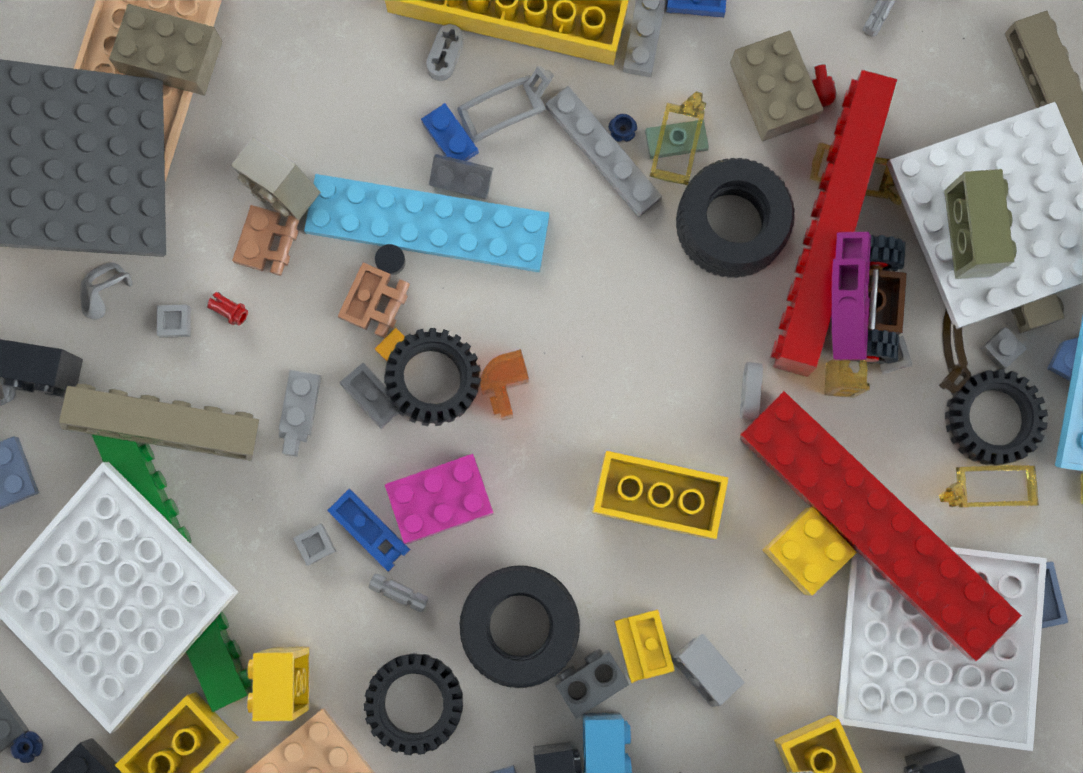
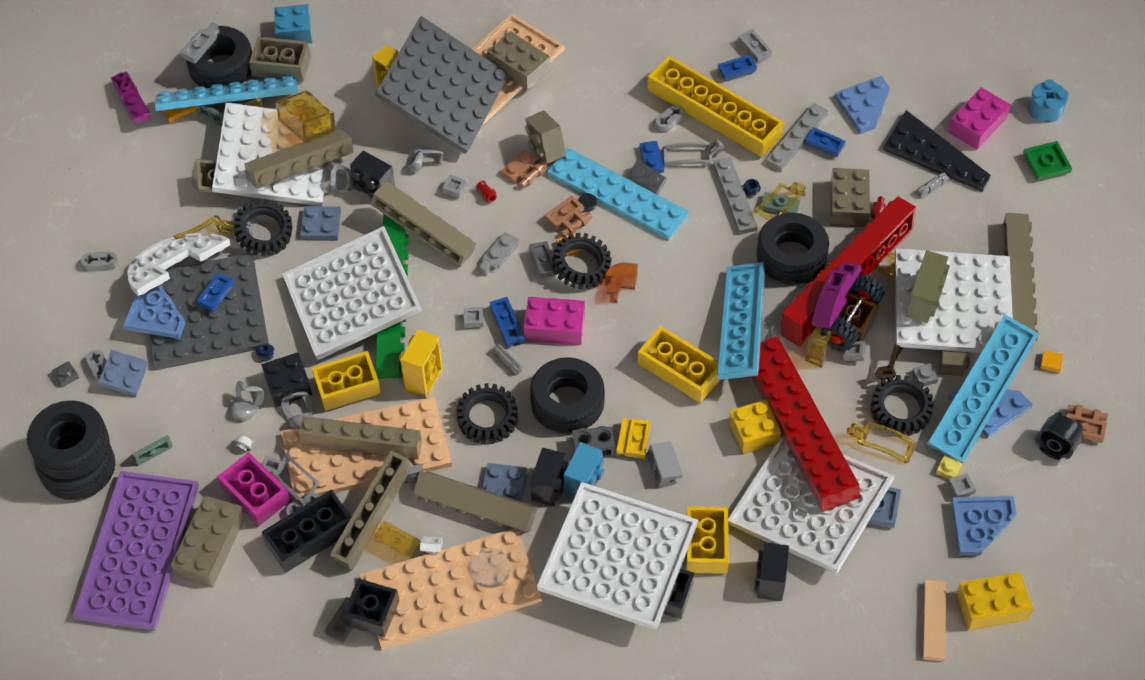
camera: 30 degrees right, 25 degrees down
(721, 389) = (741, 321): none -> medium azure plate

